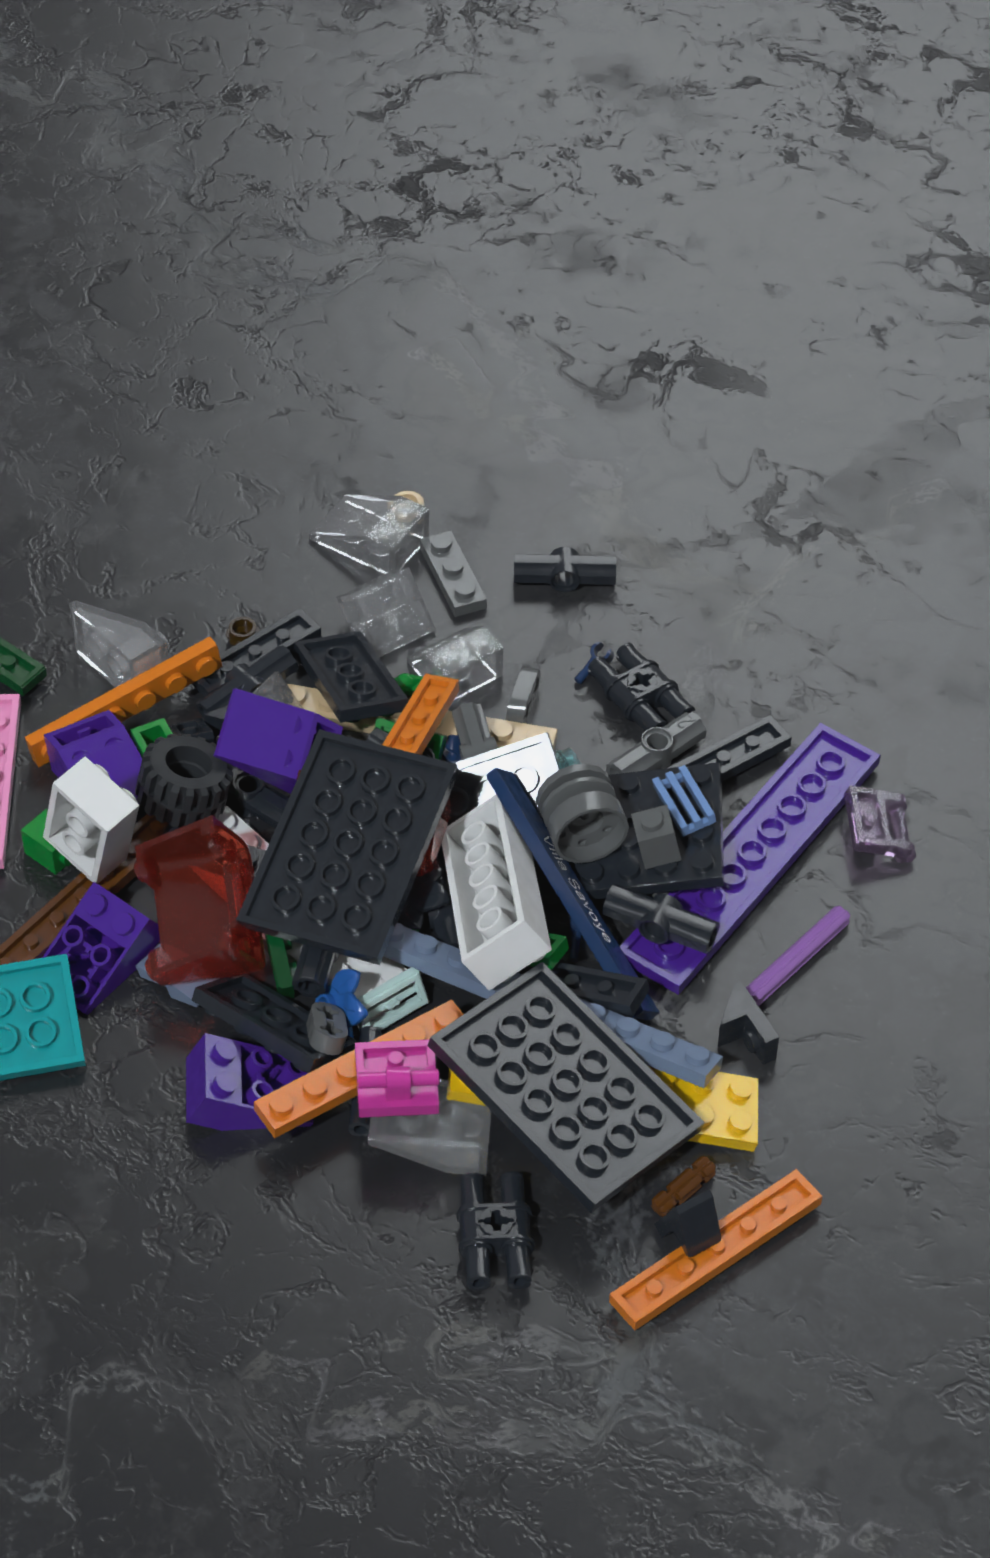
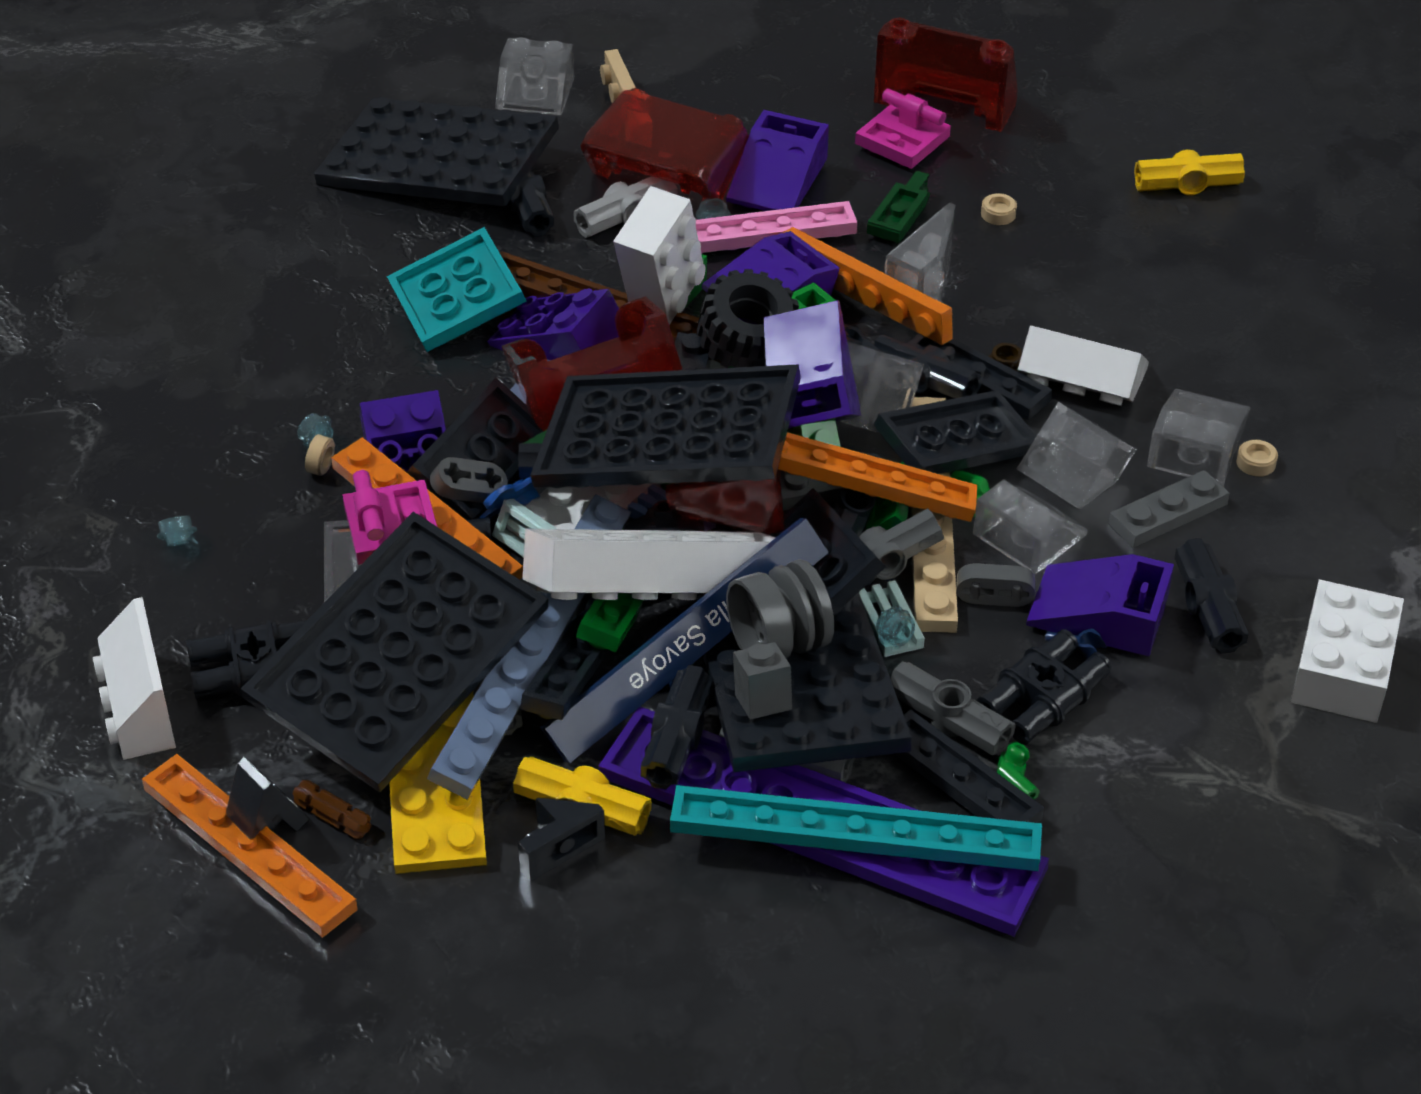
camera: 80 degrees right, 5 degrees down
(21, 595) = (998, 209): none -> tan tile
(26, 452) = (1189, 172): none -> yellow piece
(189, 1163) = (314, 425): none -> clear light blue plate
(230, 1159) = (319, 455): none -> tan tile
(273, 580) = (1082, 365): none -> white slope
(305, 1288) = (176, 530): none -> clear light blue plate
(522, 1316) = (133, 685): none -> white slope
(562, 629) = (1113, 595): none -> dark purple slope
(644, 505) = (1348, 651): none -> white brick
(674, 780) = (832, 705): medium blue tile -> none
(706, 1000) = (585, 784): none -> yellow piece
(719, 730) = (1013, 767): none -> green arm
(784, 828) = (856, 828): none -> teal plate
(798, 954) = (680, 880): medium lavender axle -> none
(870, 825) = (898, 922): clear purple plate -> none

